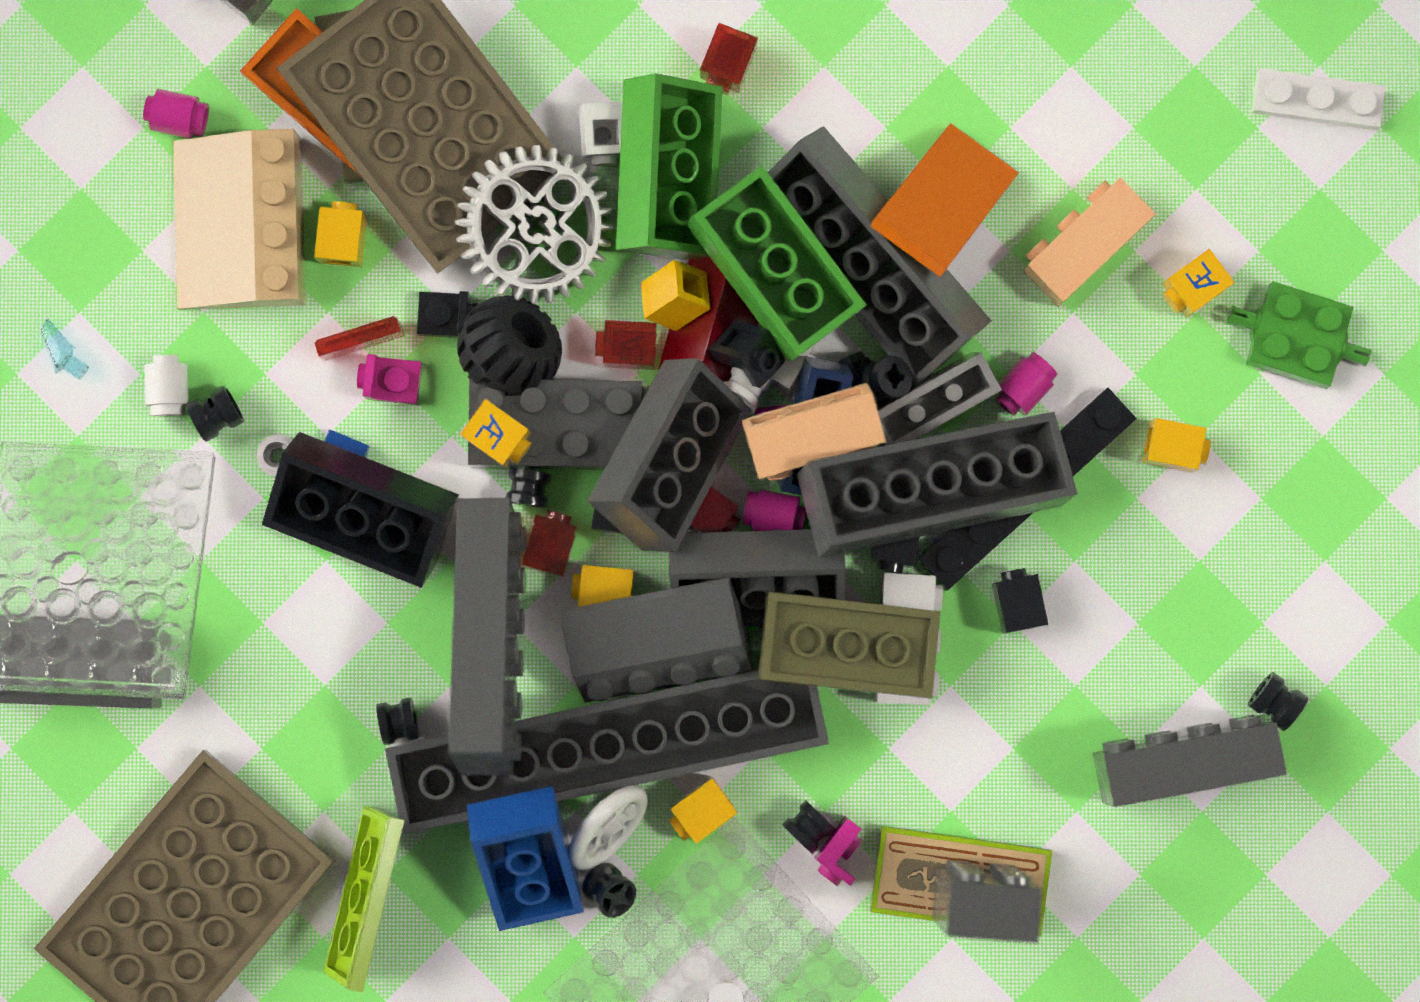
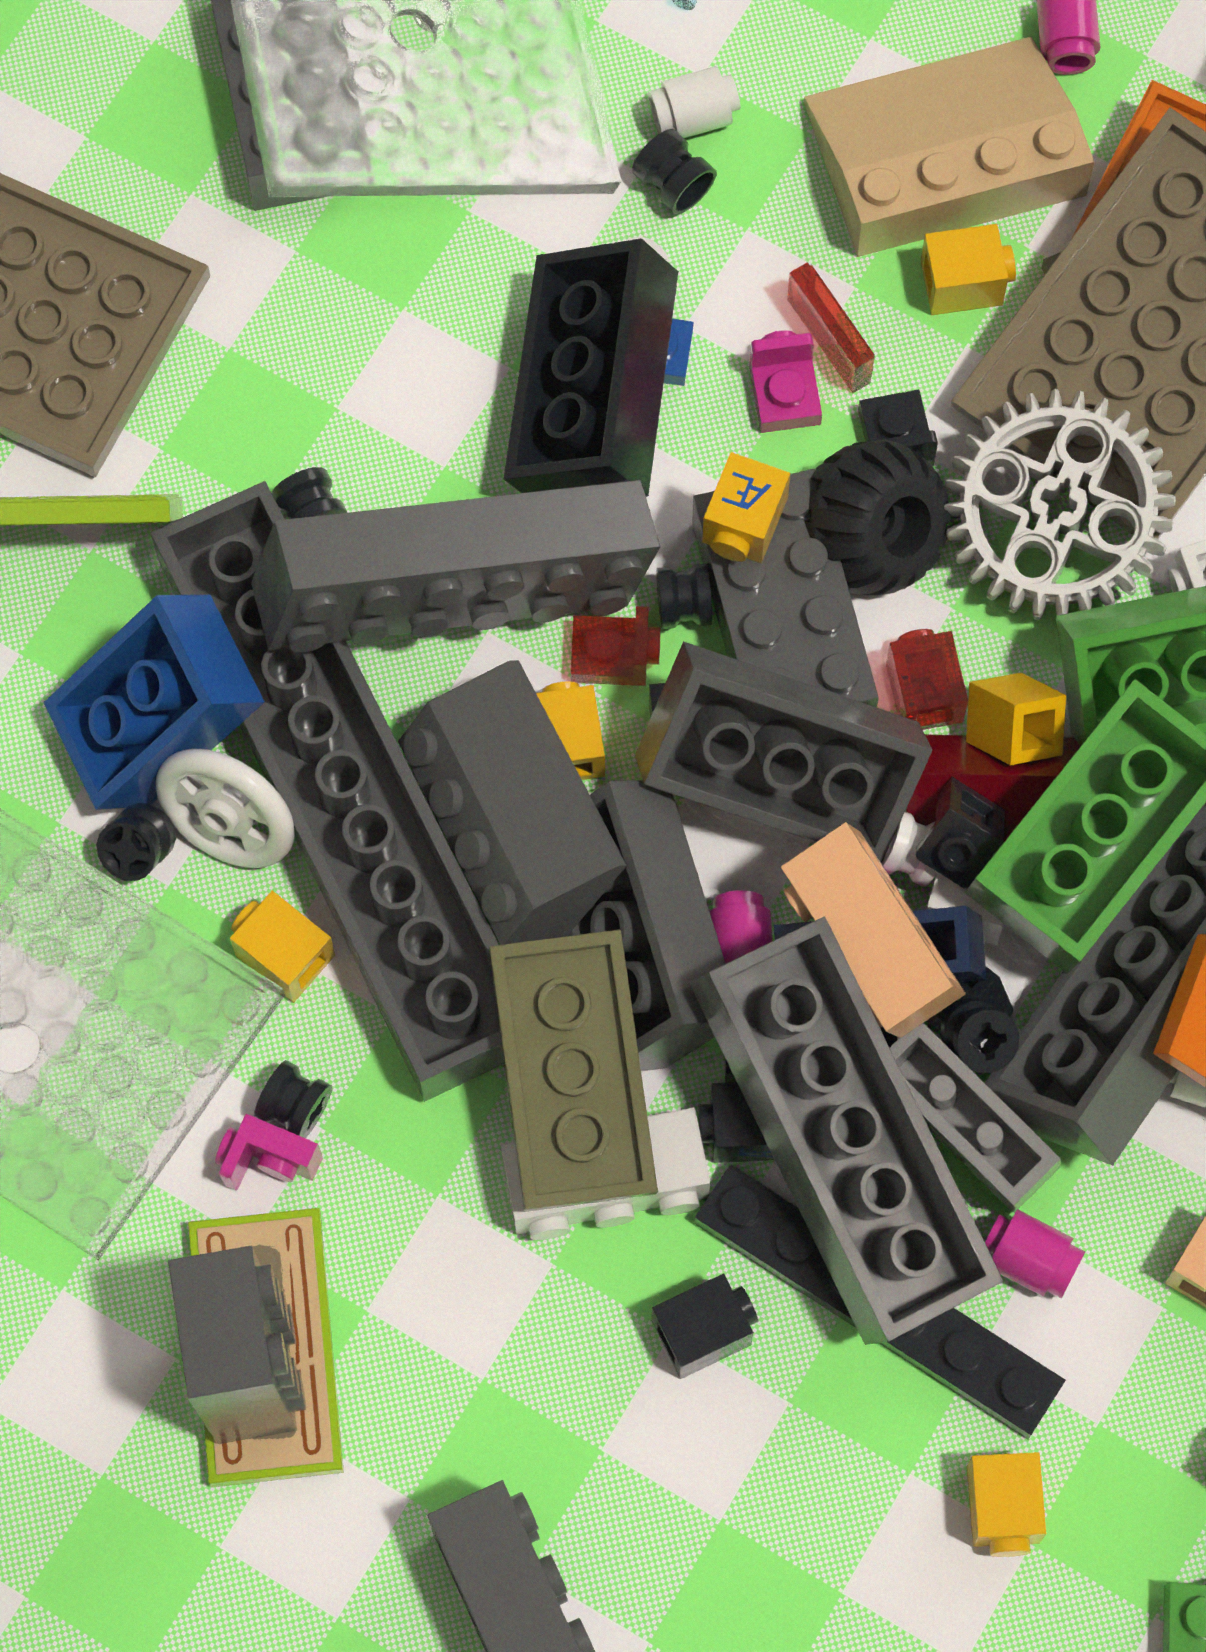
camera: 75 degrees right, 15 degrees down
(715, 514) = (720, 847): dark red brick -> none

